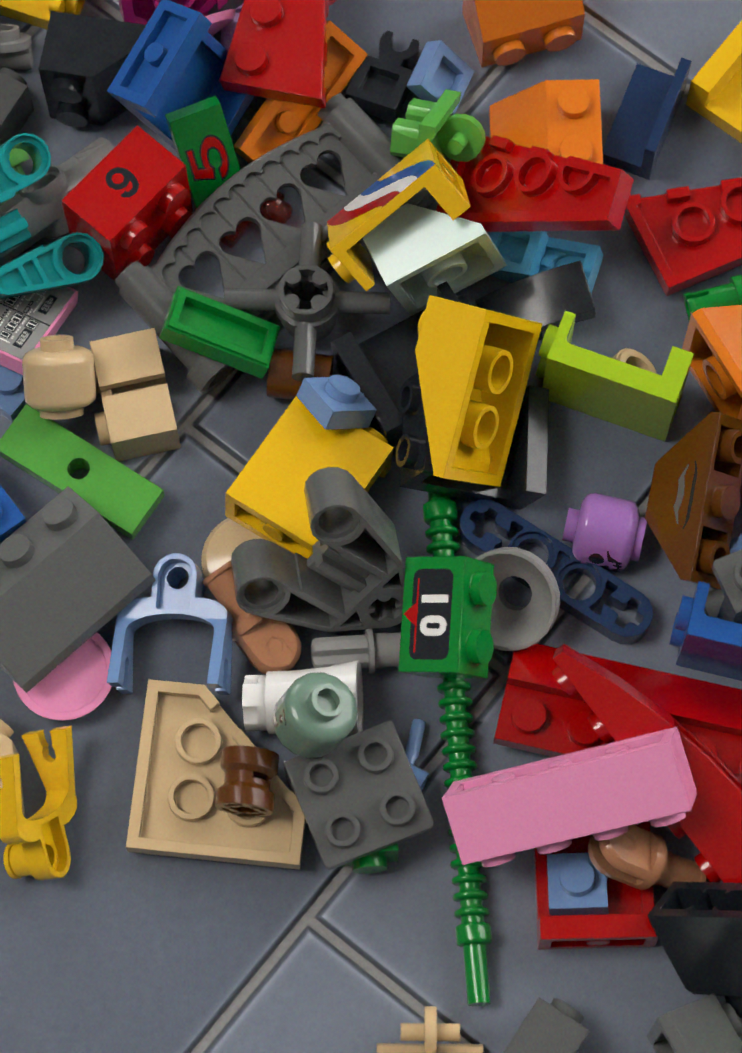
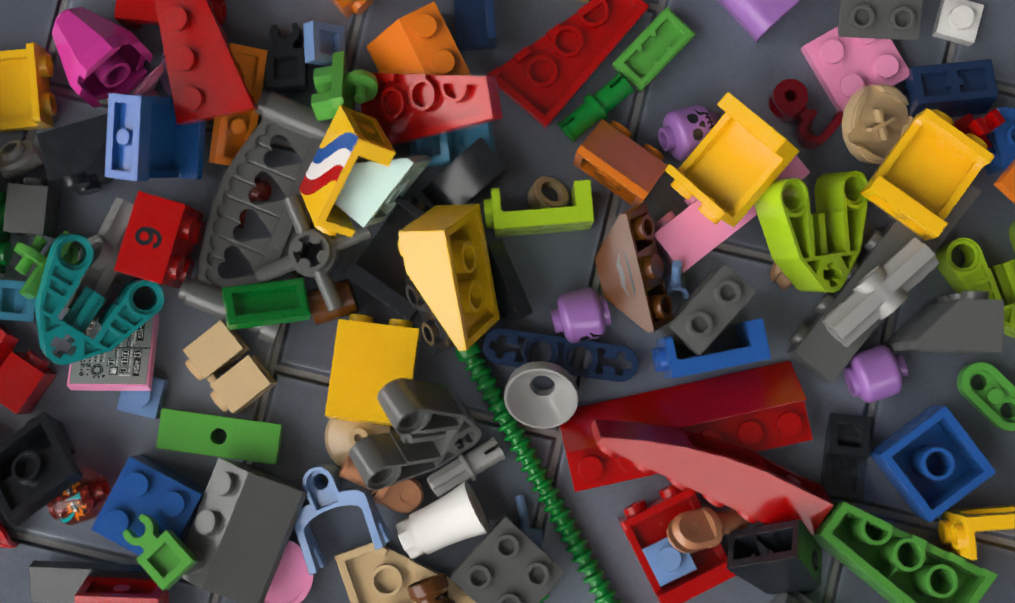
camera: 20 degrees left, 15 degrees up
(59, 378) = (175, 386): tan head -> none
(203, 146) = (190, 176): green tile -> none
(315, 715) = (457, 546): sand green head -> none
(336, 402) = (367, 317): medium blue plate -> none
(447, 617) = (509, 433): green brick -> none
(571, 798) = (647, 522): bright pink brick -> none

